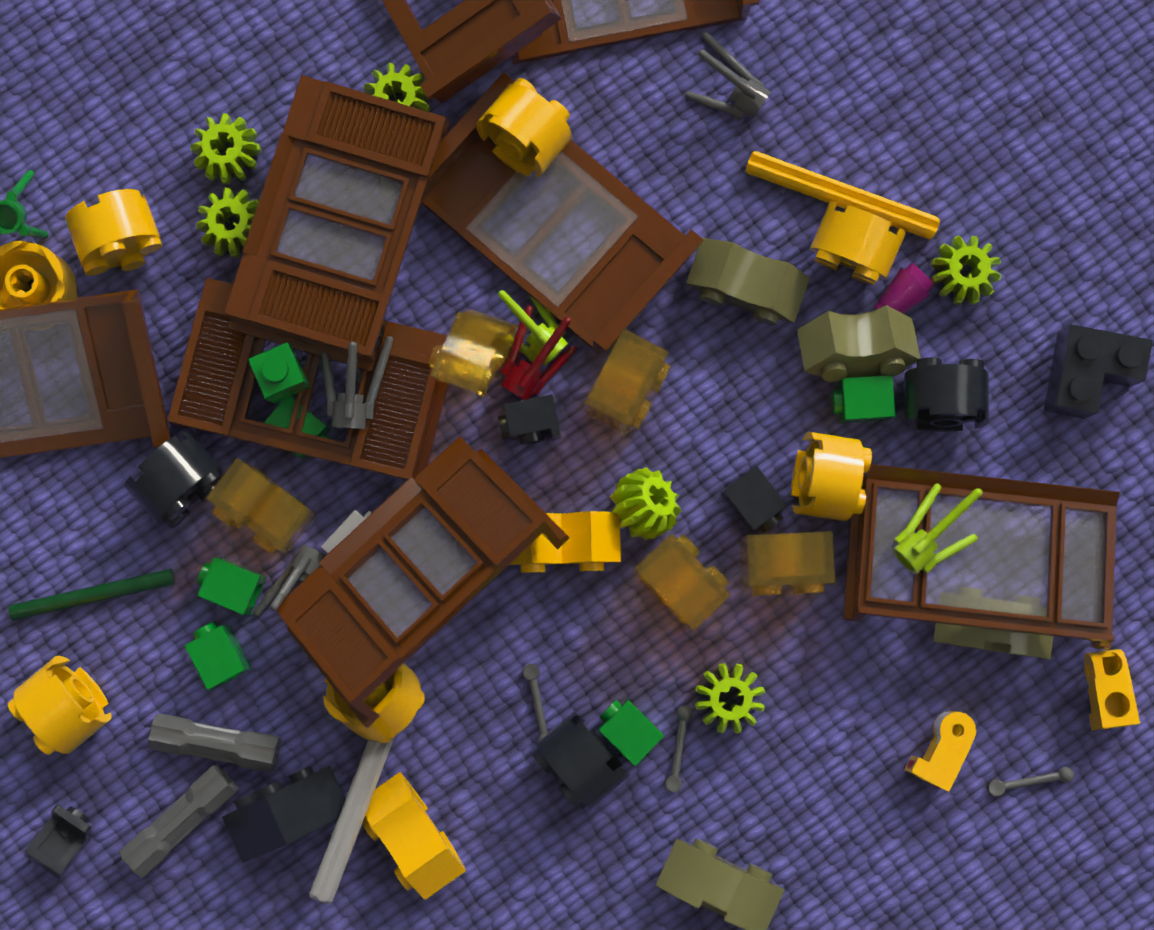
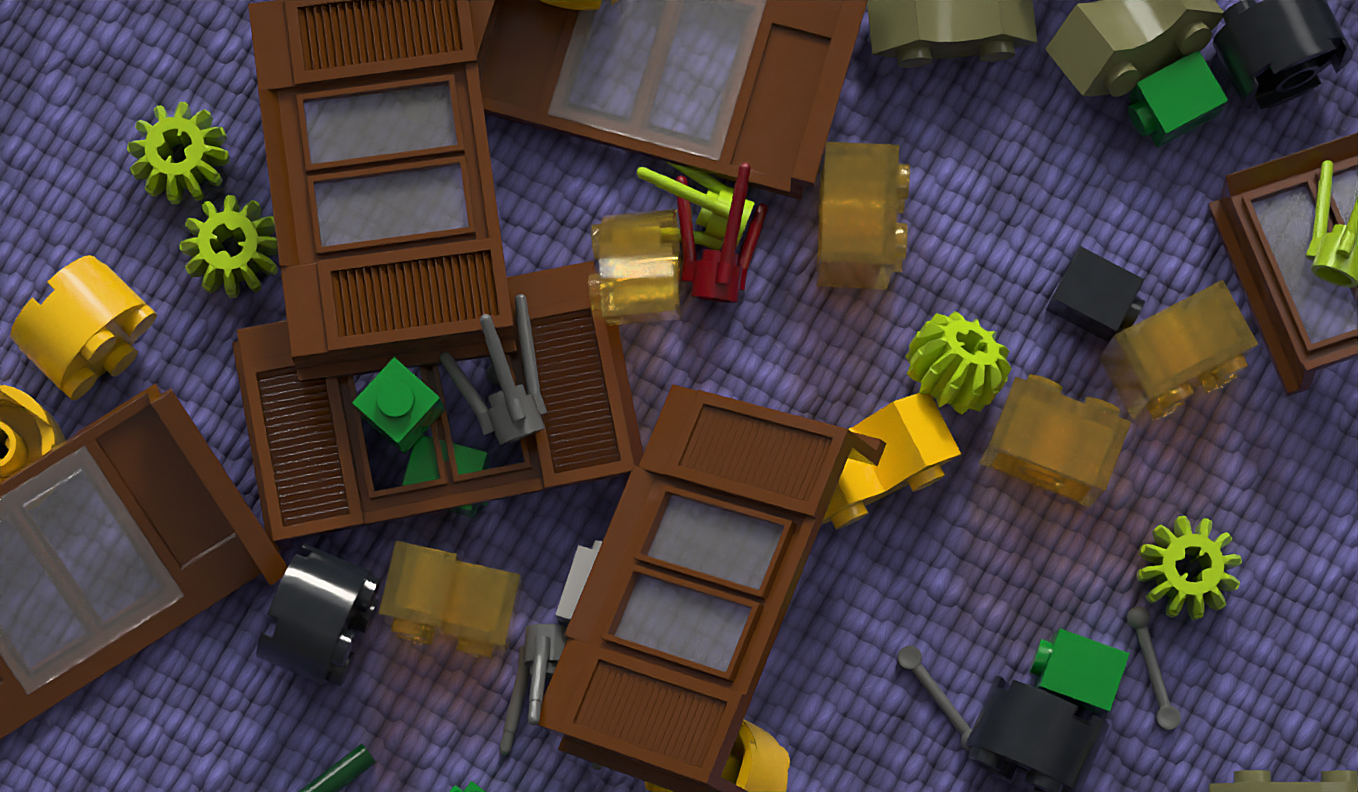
camera: 25 degrees left, 5 degrees down
(230, 585) = (454, 725): green brick -> none
(530, 420) = (753, 324): black brick -> none
(830, 477) = (1181, 217): yellow brick -> none

